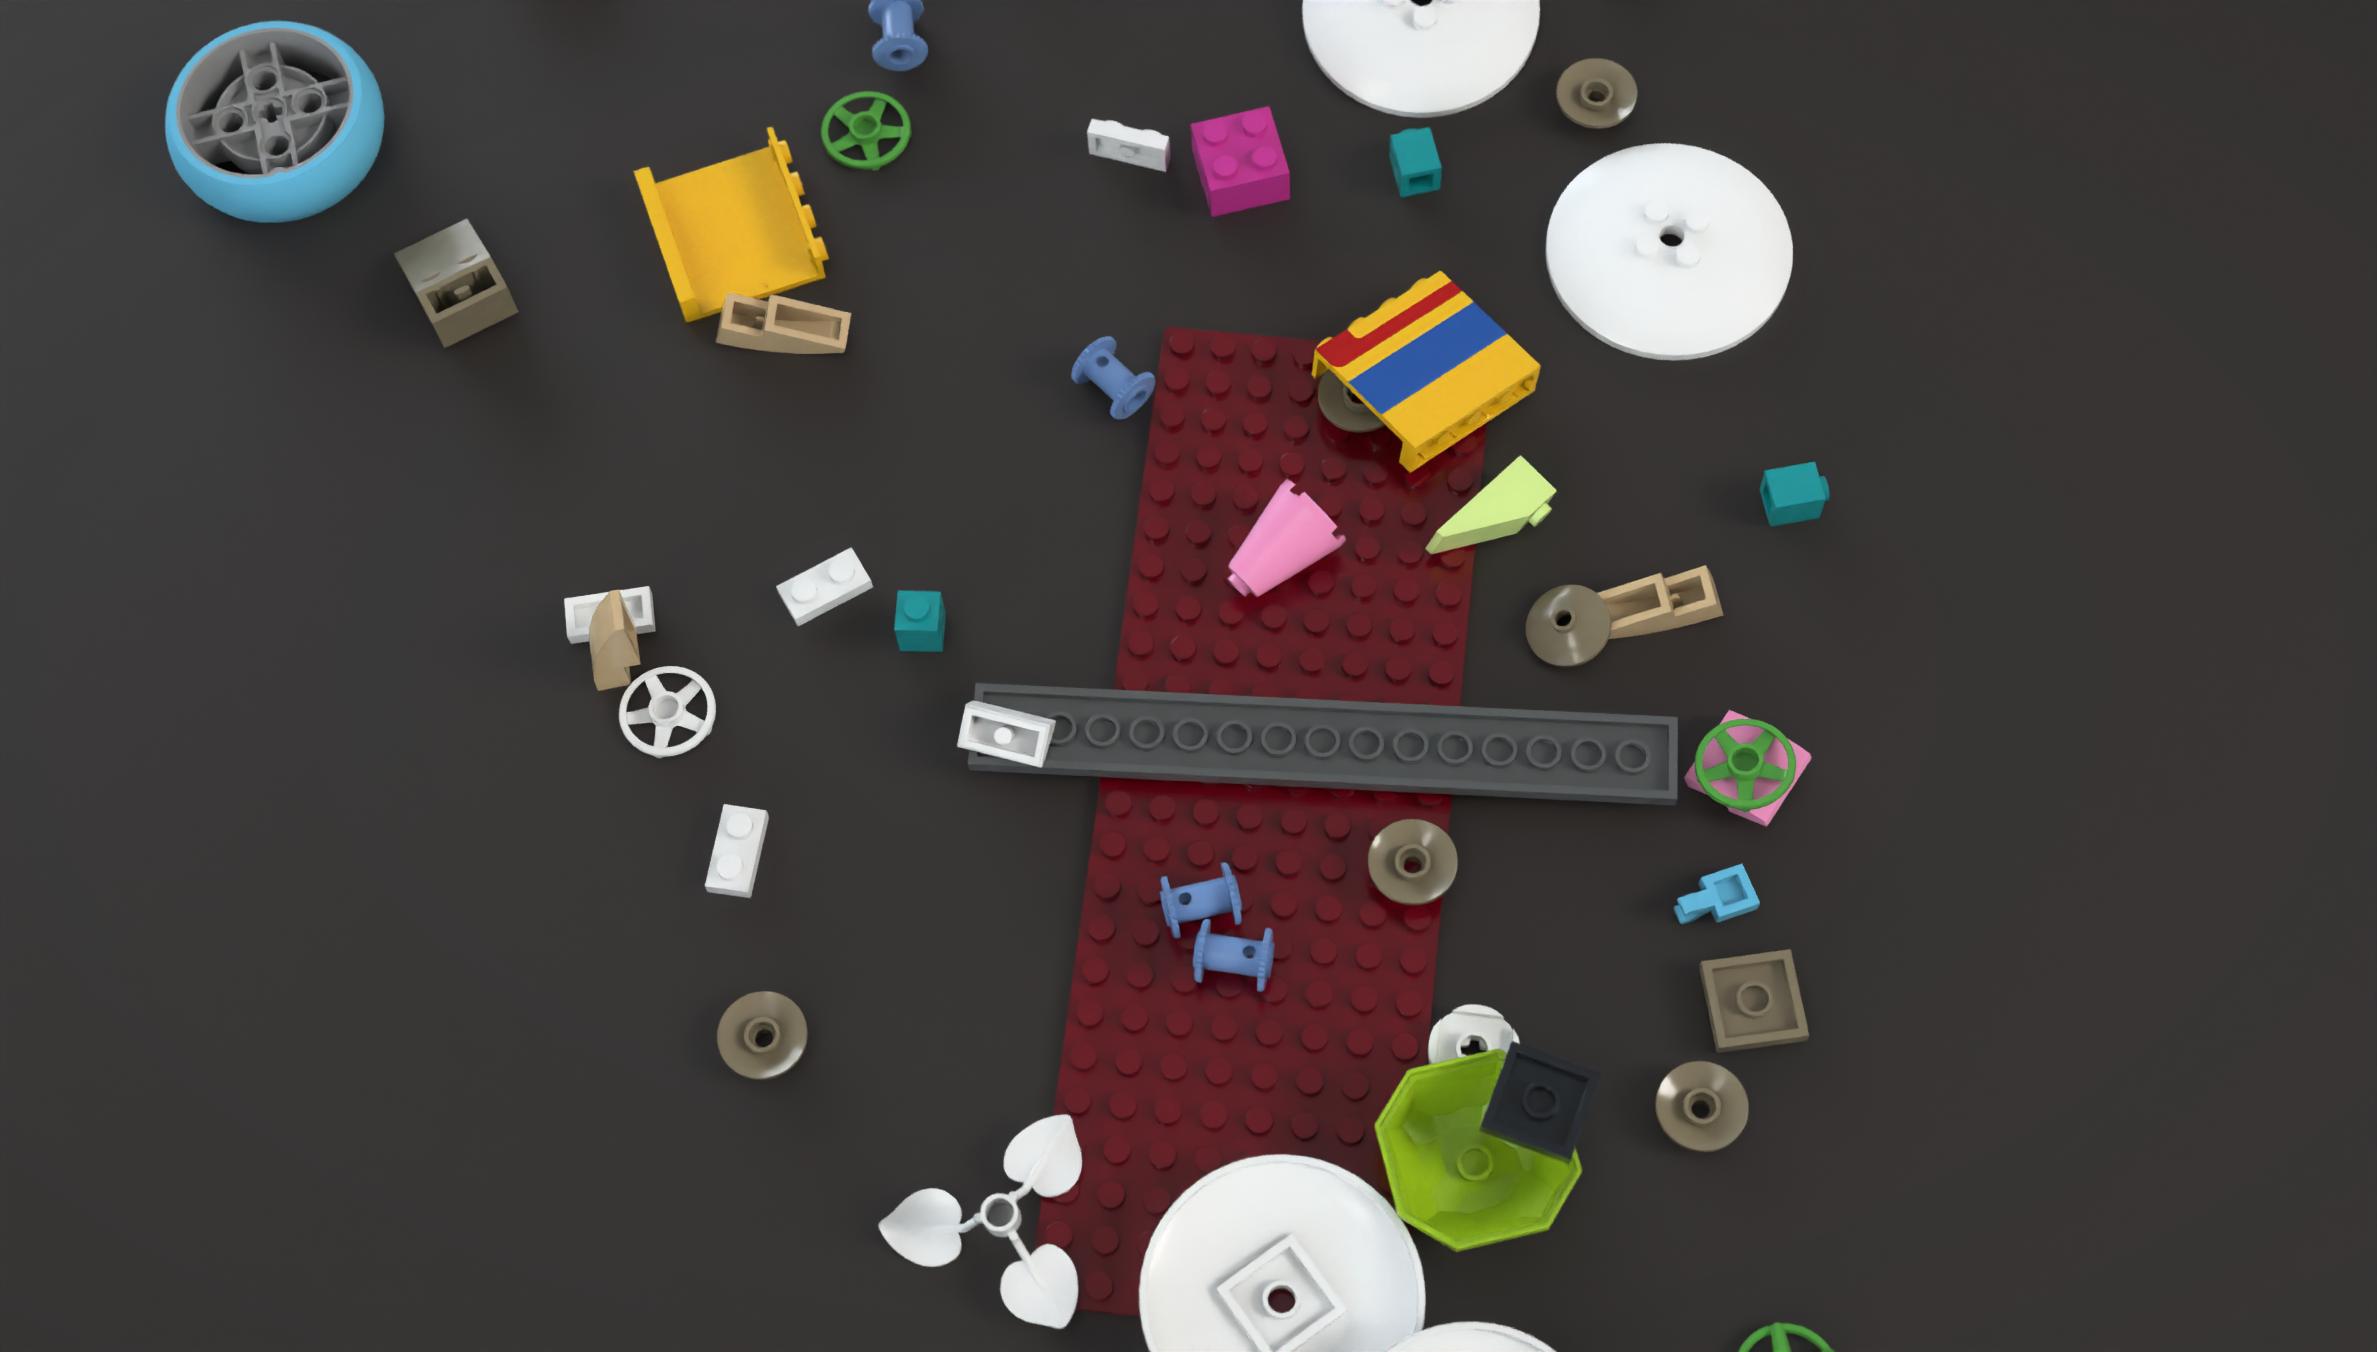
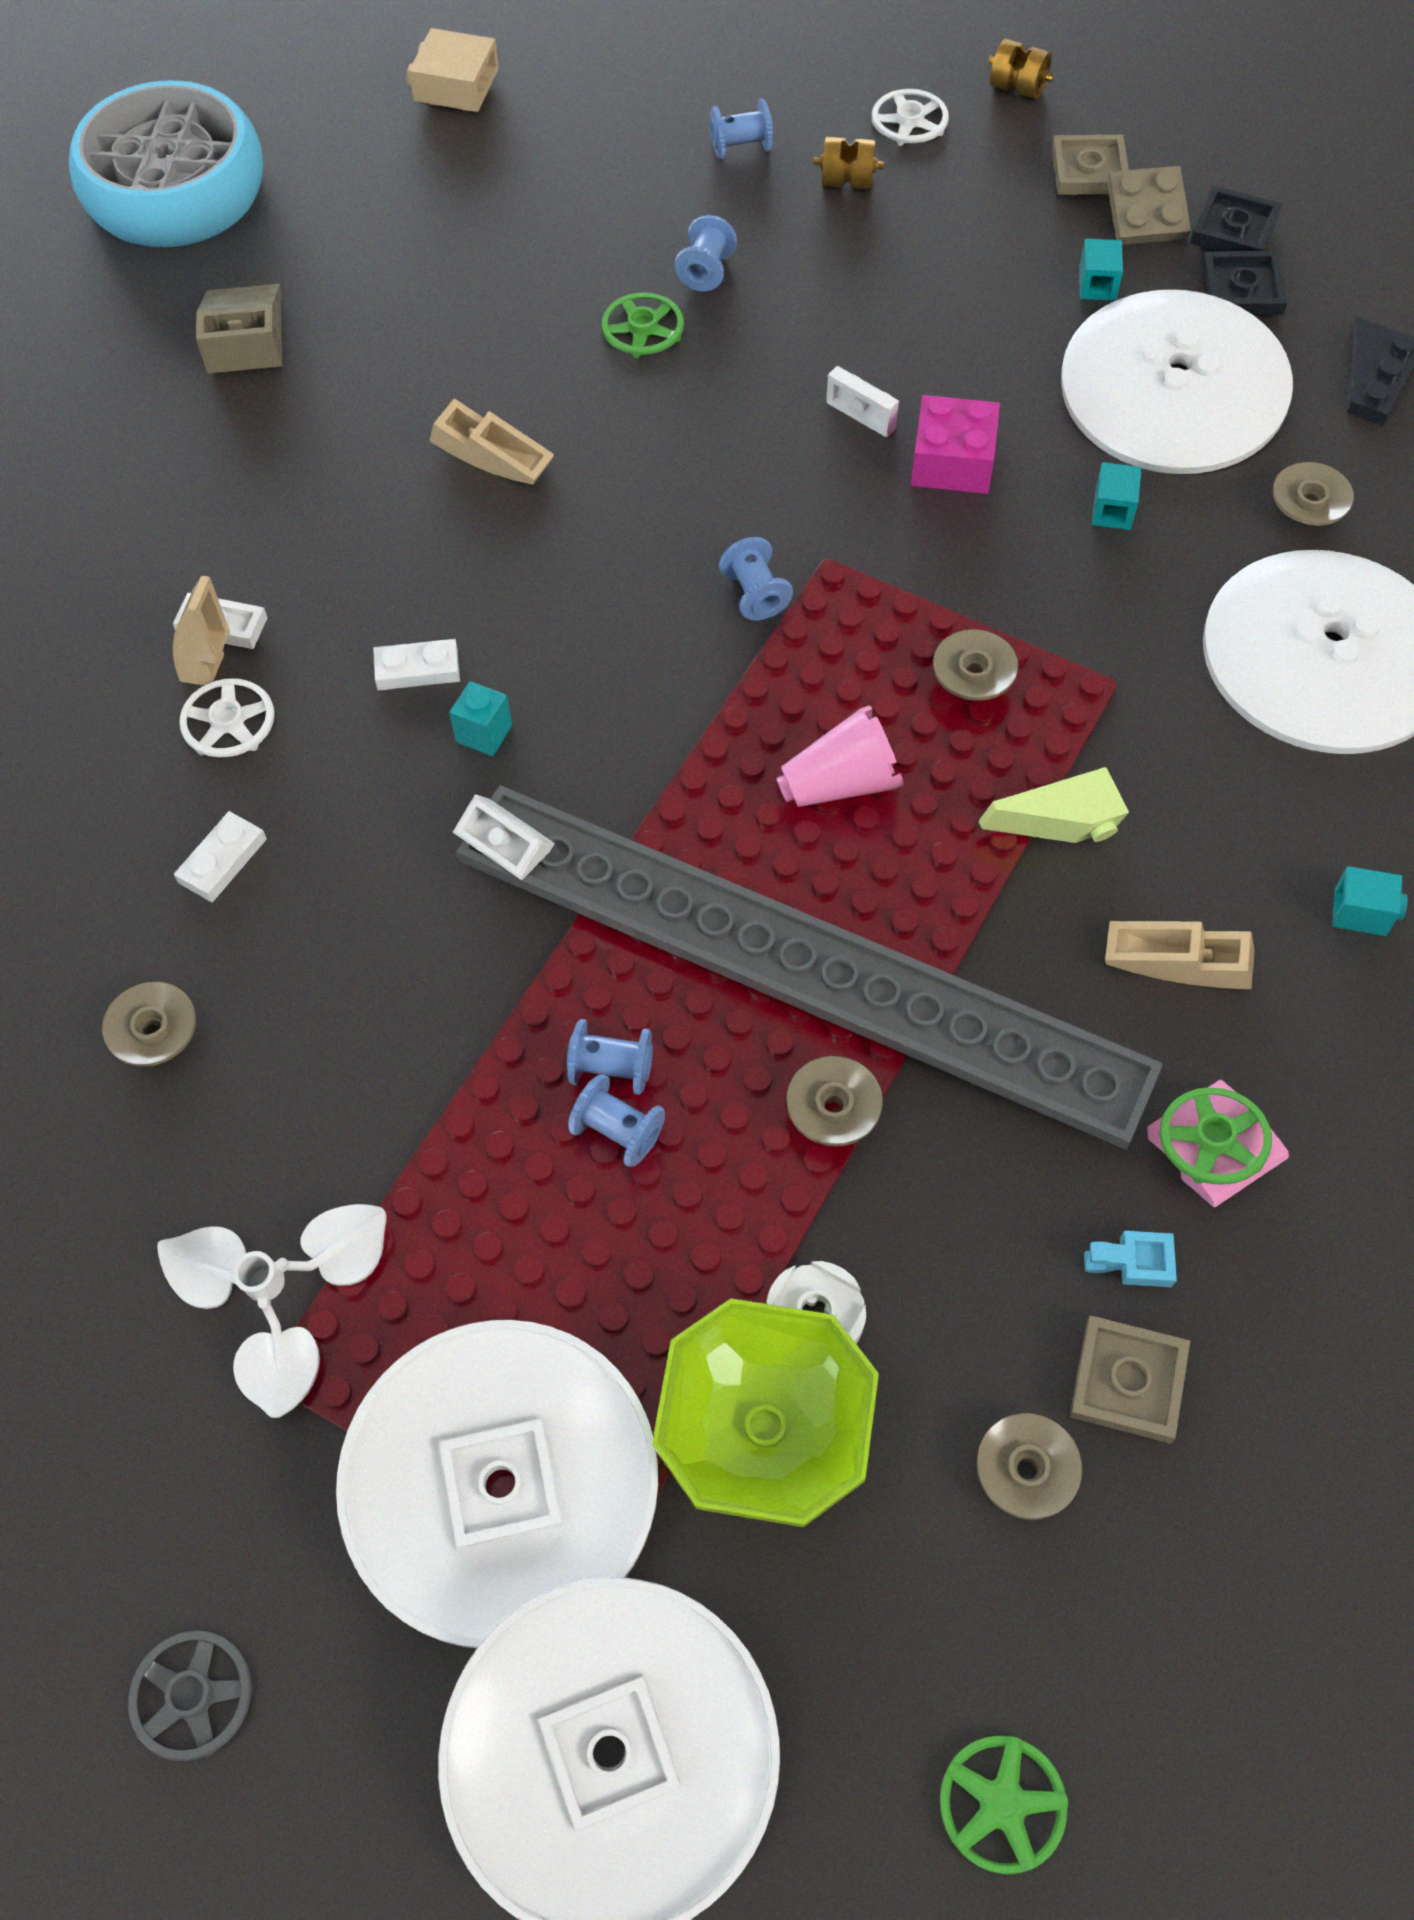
camera: 20 degrees right, 5 degrees down
(734, 229) = (489, 360): yellow panel -> none
(1429, 367) = (1053, 665): yellow panel -> none
(1540, 1102) = (850, 1387): black plate -> none
(1578, 640) = (1094, 956): dark tan dish -> none

